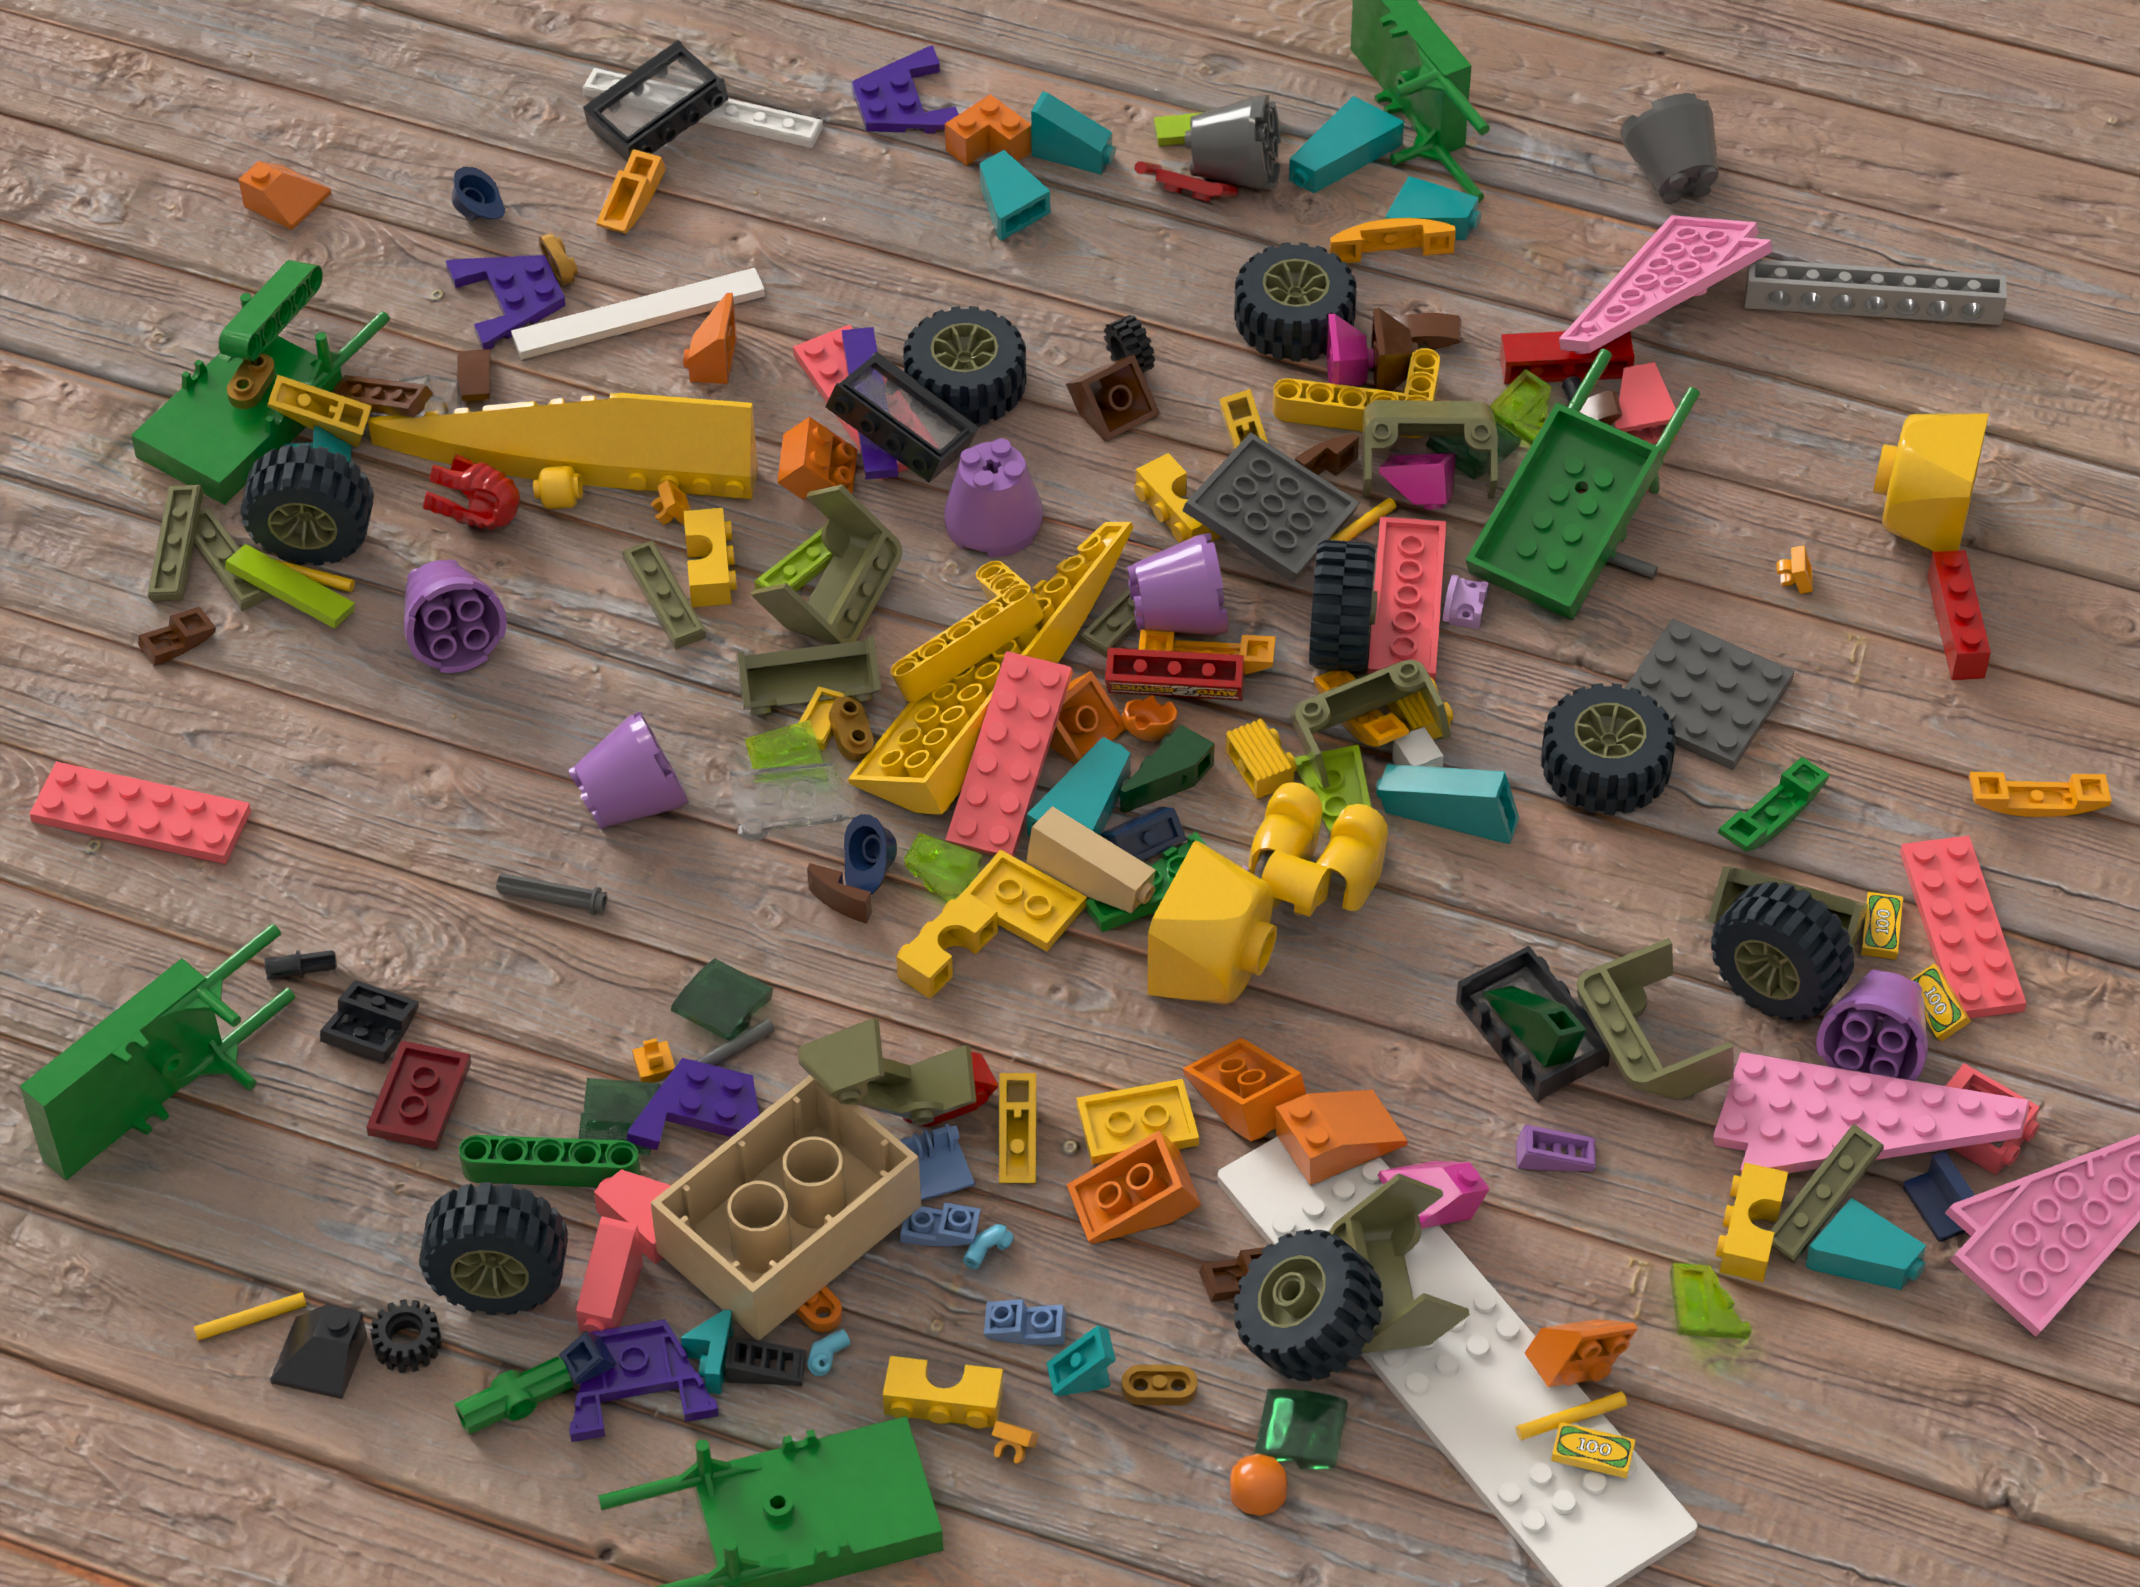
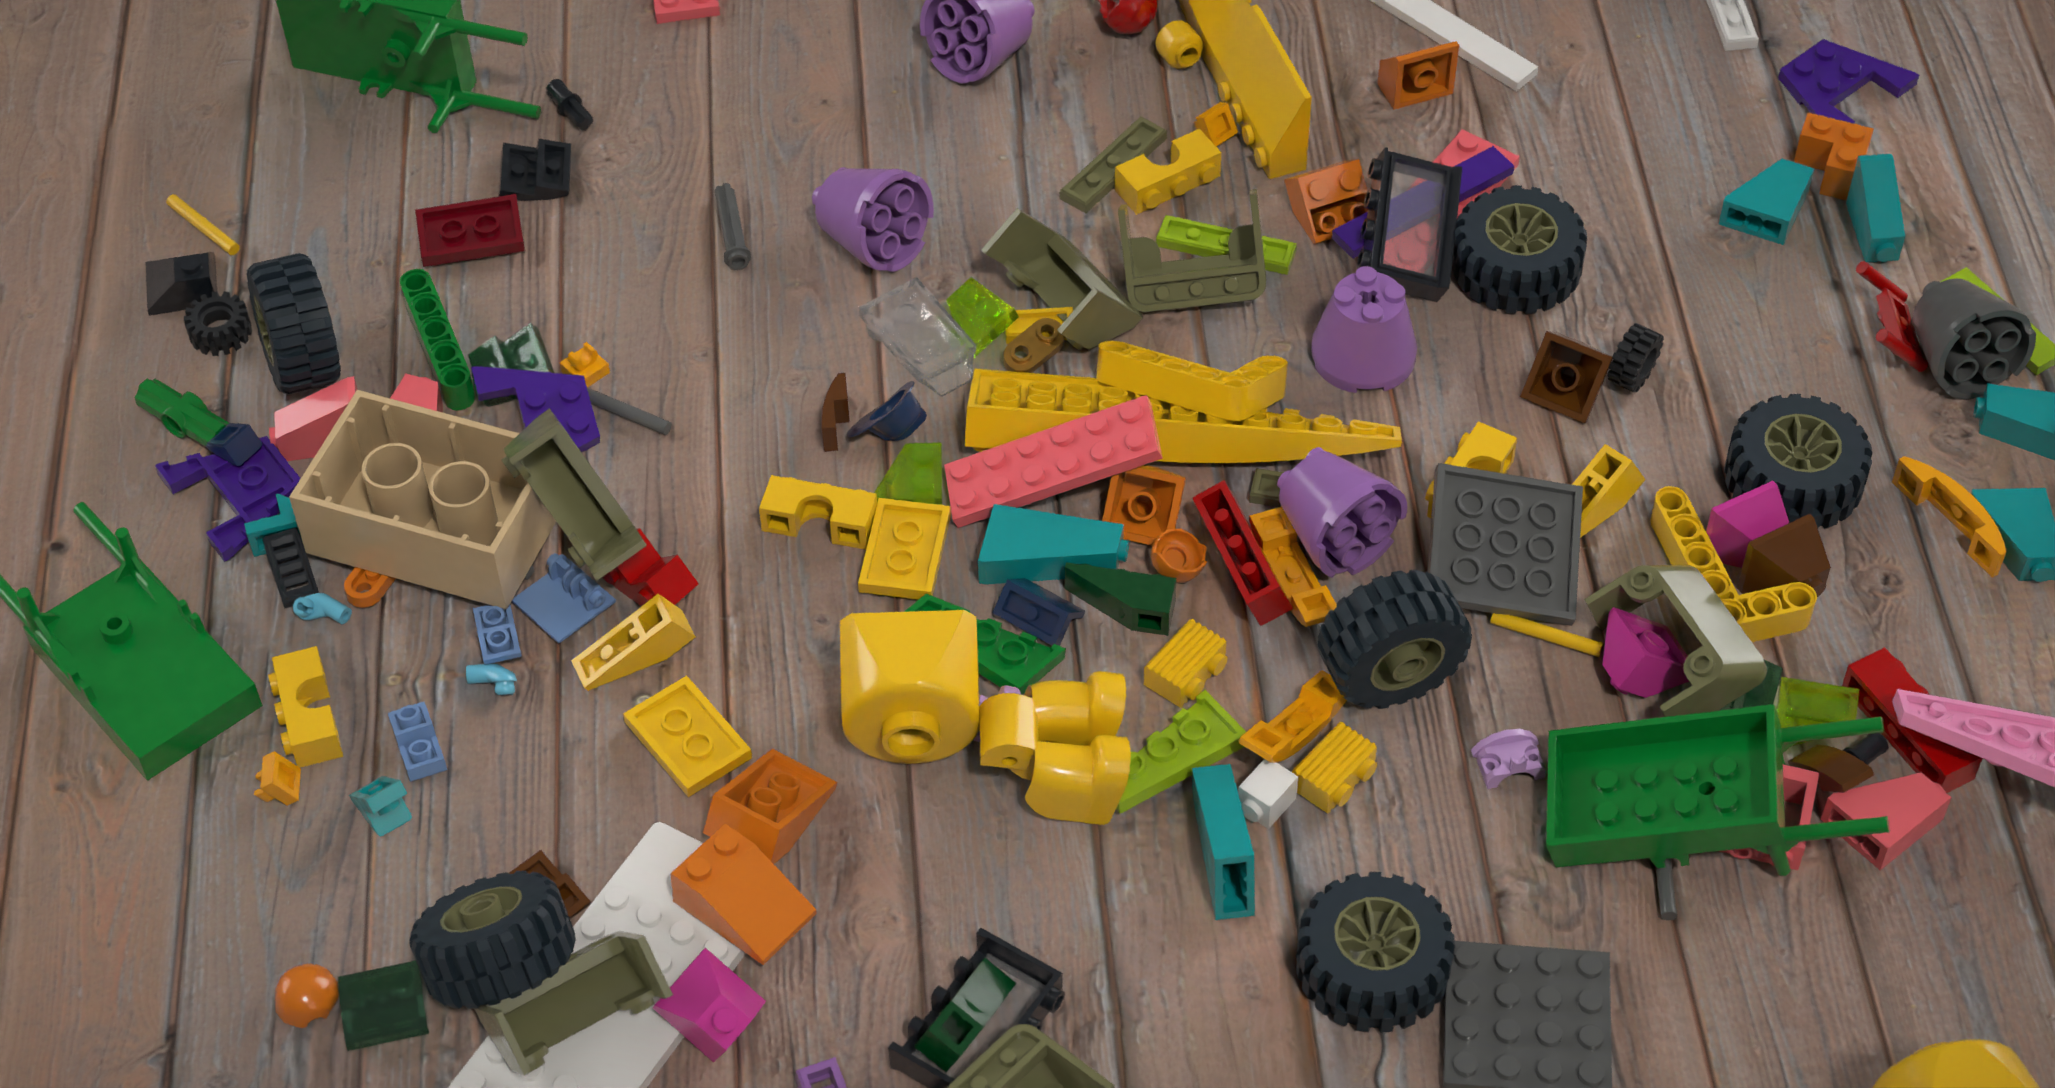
camera: 65 degrees right, 0 degrees up
(721, 999) = (674, 382): clear green slope -> none
(1088, 862) = (958, 557): tan slope -> none
(1134, 1191) = (603, 765): orange slope -> none
(1159, 1384) = (388, 872): pearl gold plate -> none
(1331, 455) = (1603, 562): reddish brown slope -> none
(1362, 697) = (1327, 727): olive windscreen -> none
(1408, 593) = (1475, 704): coral plate -> none
(1434, 328) = (1858, 591): reddish brown slope -> none
(1797, 570) = (1760, 1048): light orange tile -> none

